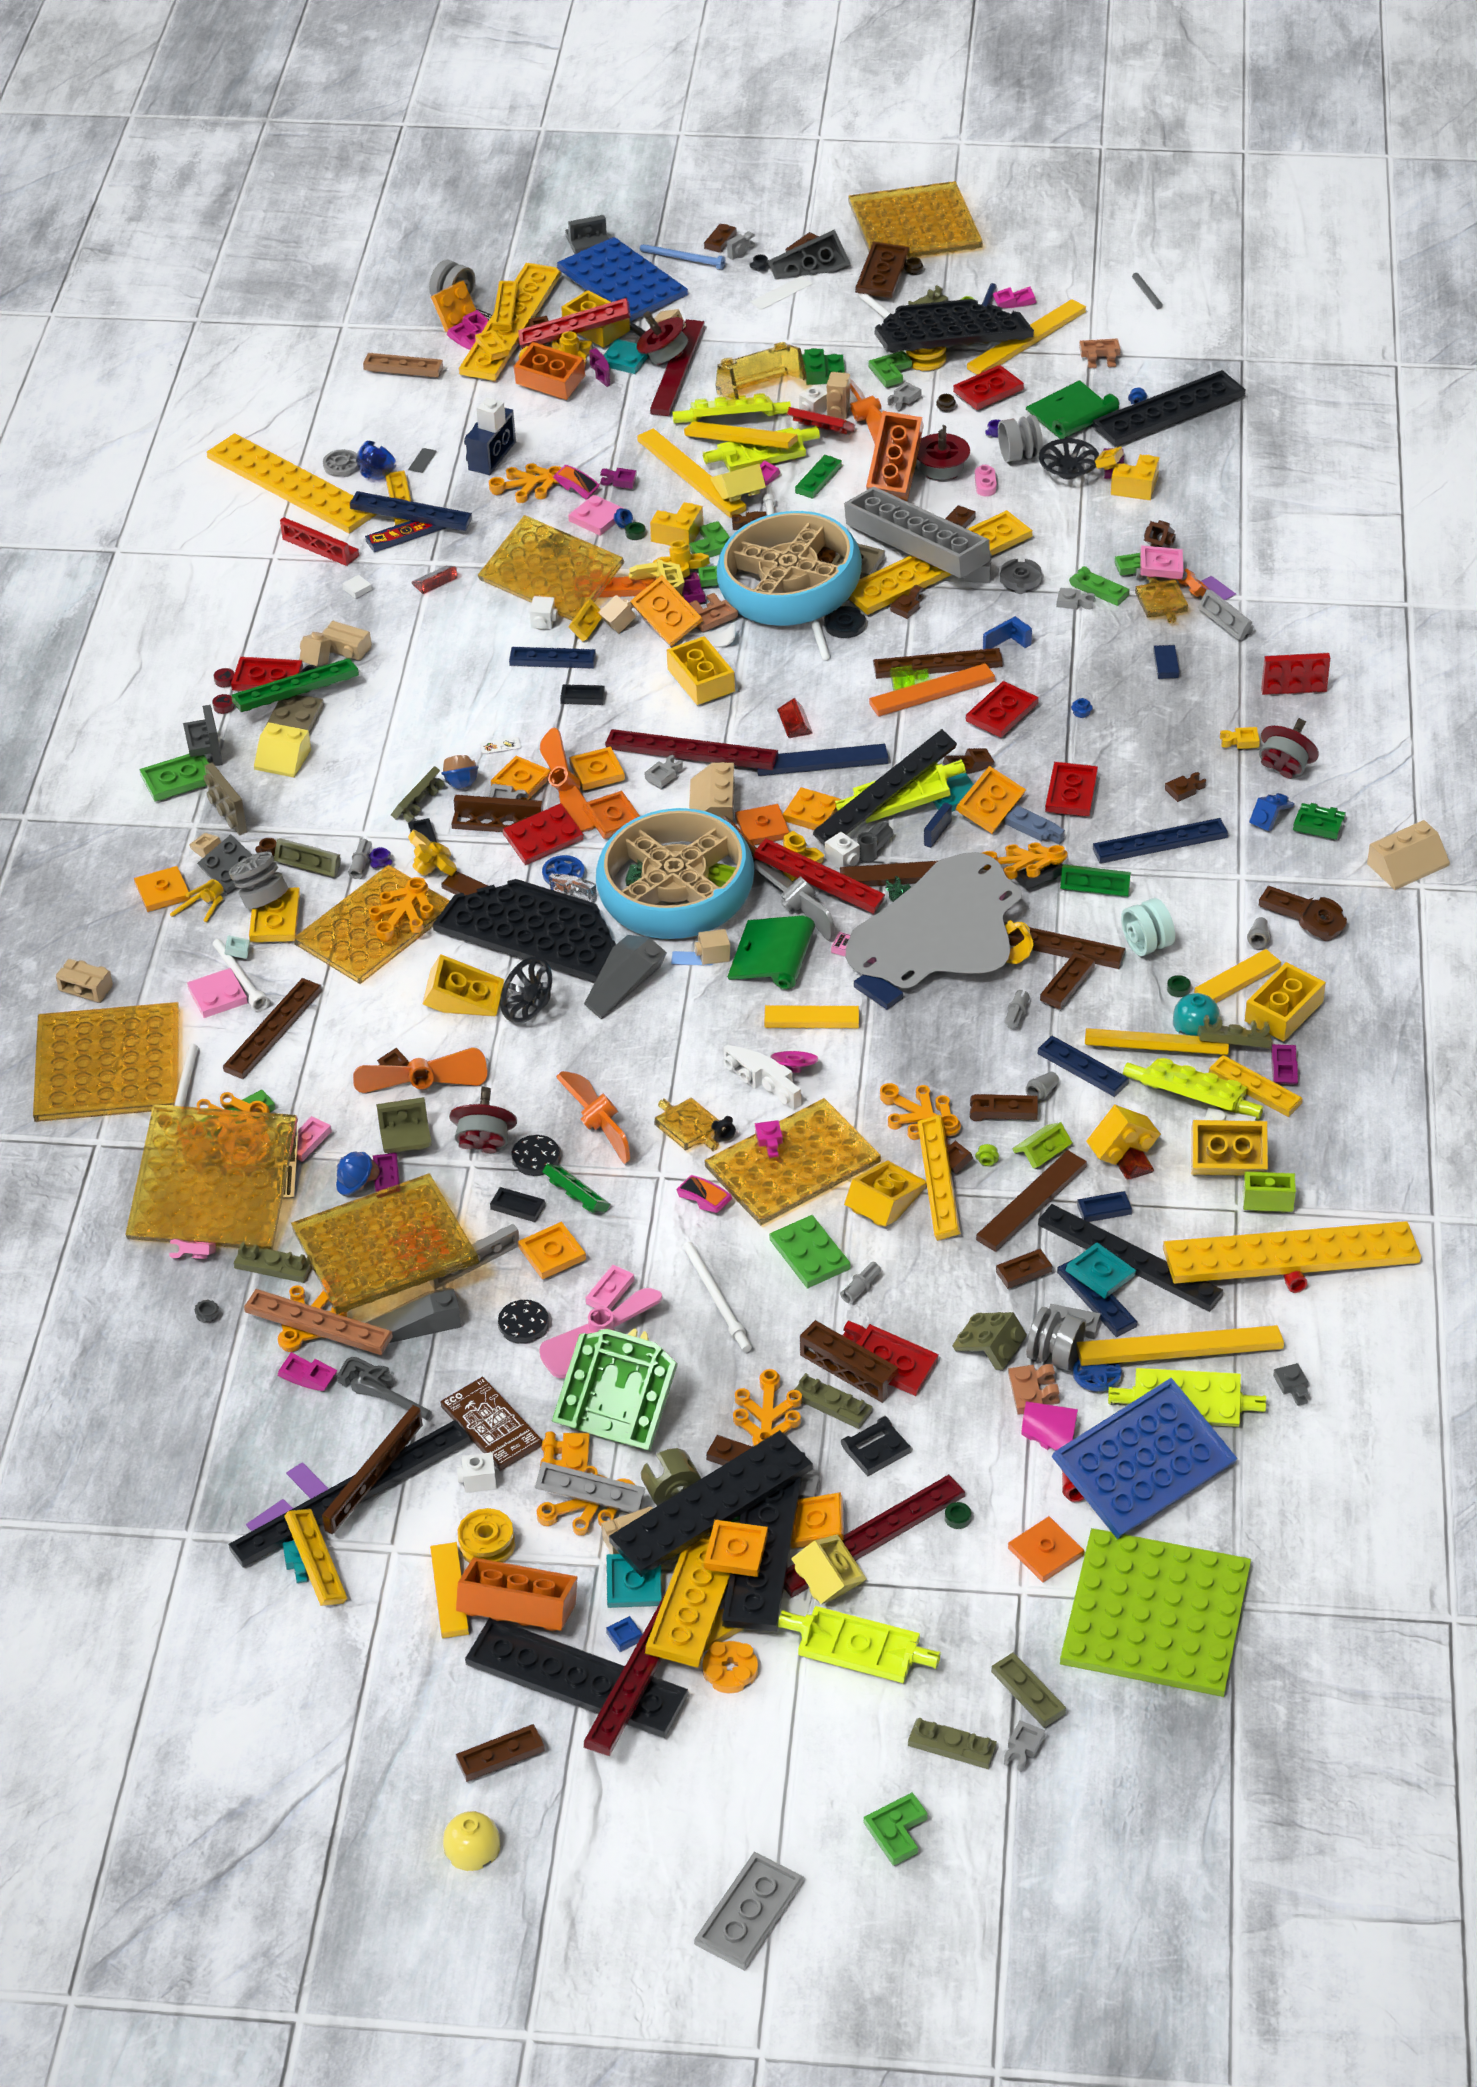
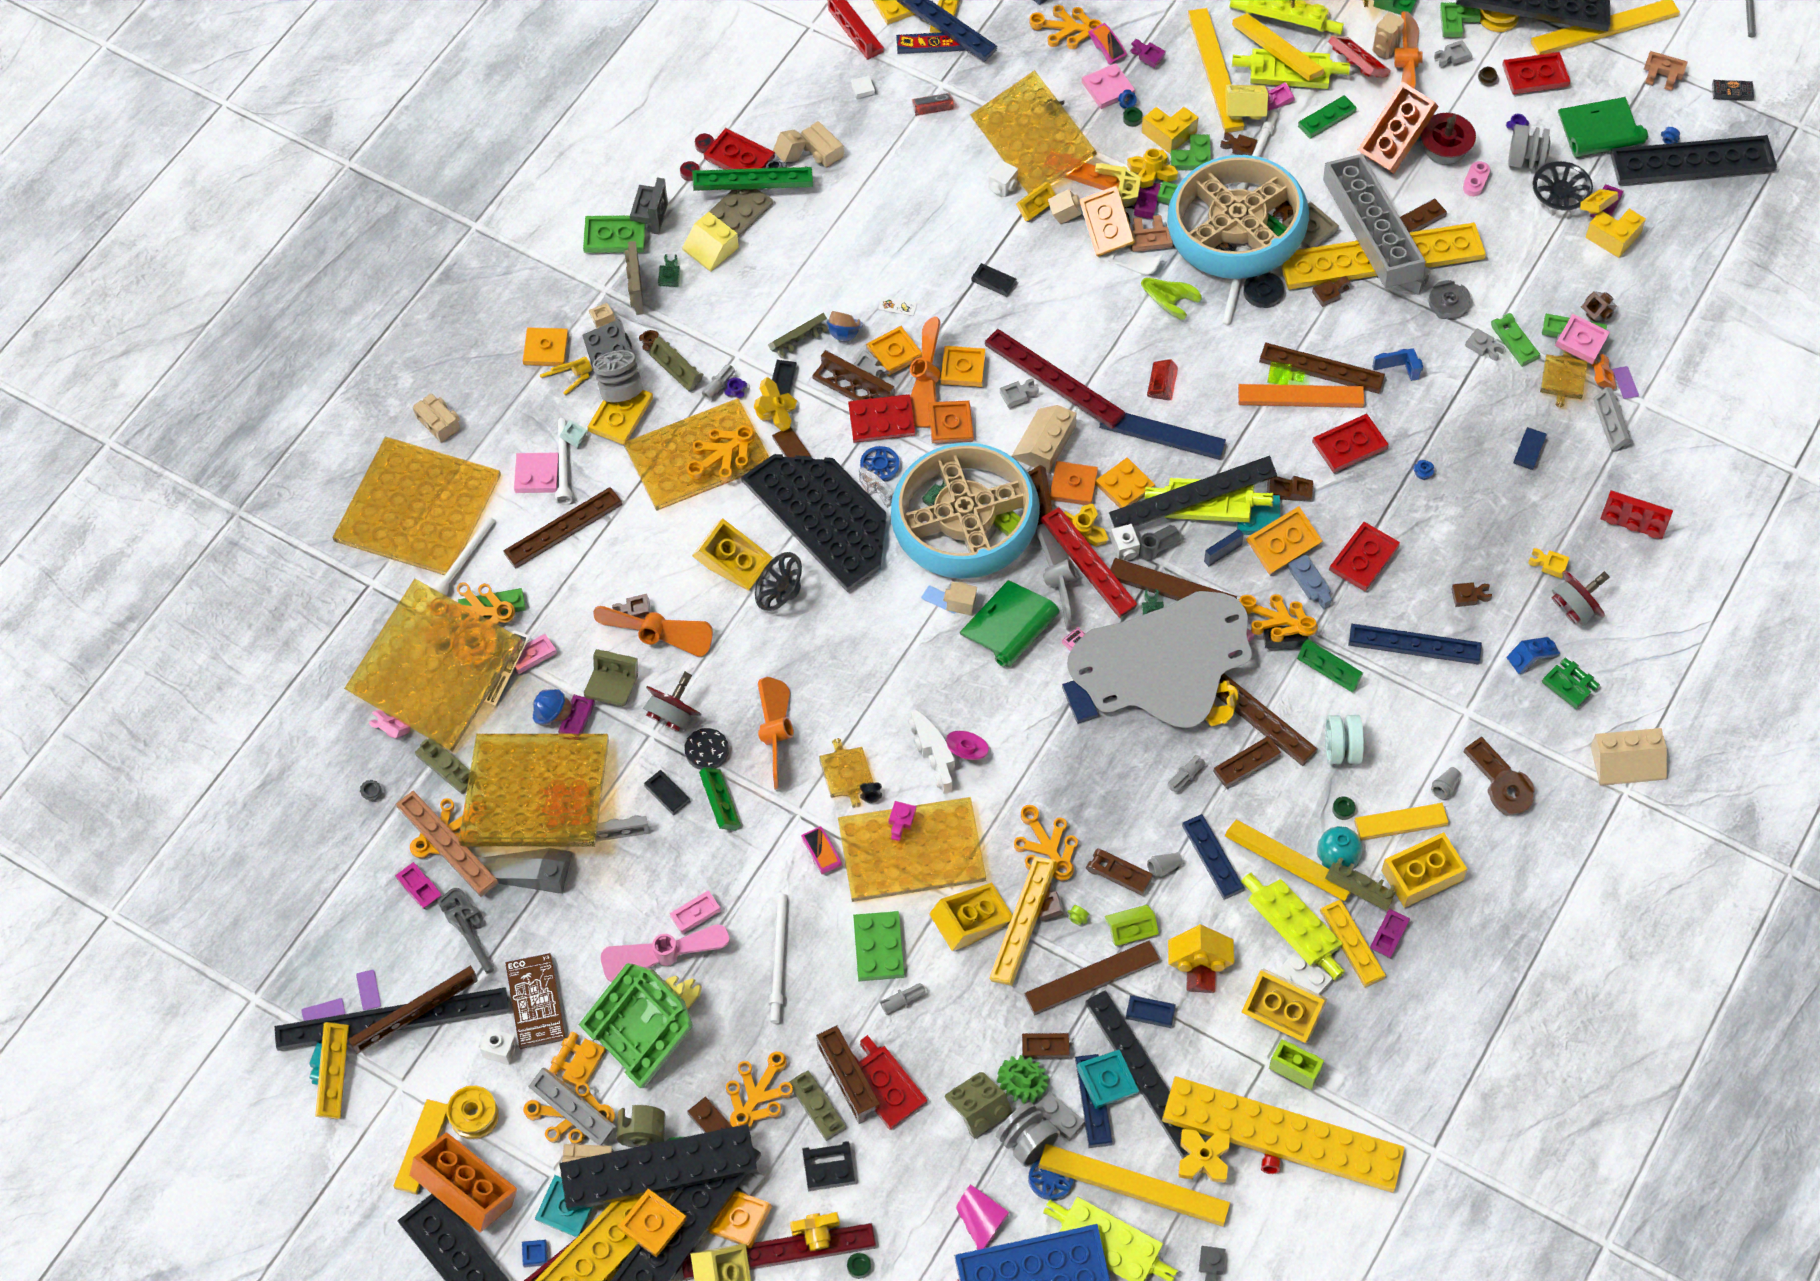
camera: 25 degrees right, 15 degrees up
(253, 790) = (669, 273): none -> clear green plate
(523, 1321) = (611, 911): black tile -> none
(552, 657) = (989, 229): dark blue tile -> none
(552, 1250) = (668, 852): light orange plate -> none
(624, 970) = (876, 590): dark grey wedge -> none
(700, 670) = (1104, 297): yellow brick -> none
(760, 651) = (1168, 293): none -> lime animal
(811, 1016) = (1008, 705): yellow tile -> none
(813, 400) = (1364, 30): white brick -> none
(900, 1493) = (816, 1229): none -> yellow plant
(1020, 1299) = (1024, 1080): none -> bright green gear
(1026, 1383) = (983, 1165): nougat plate -> none
(1169, 349) = (1732, 90): none -> tile
(1232, 1294) = (1204, 1156): none -> yellow plant

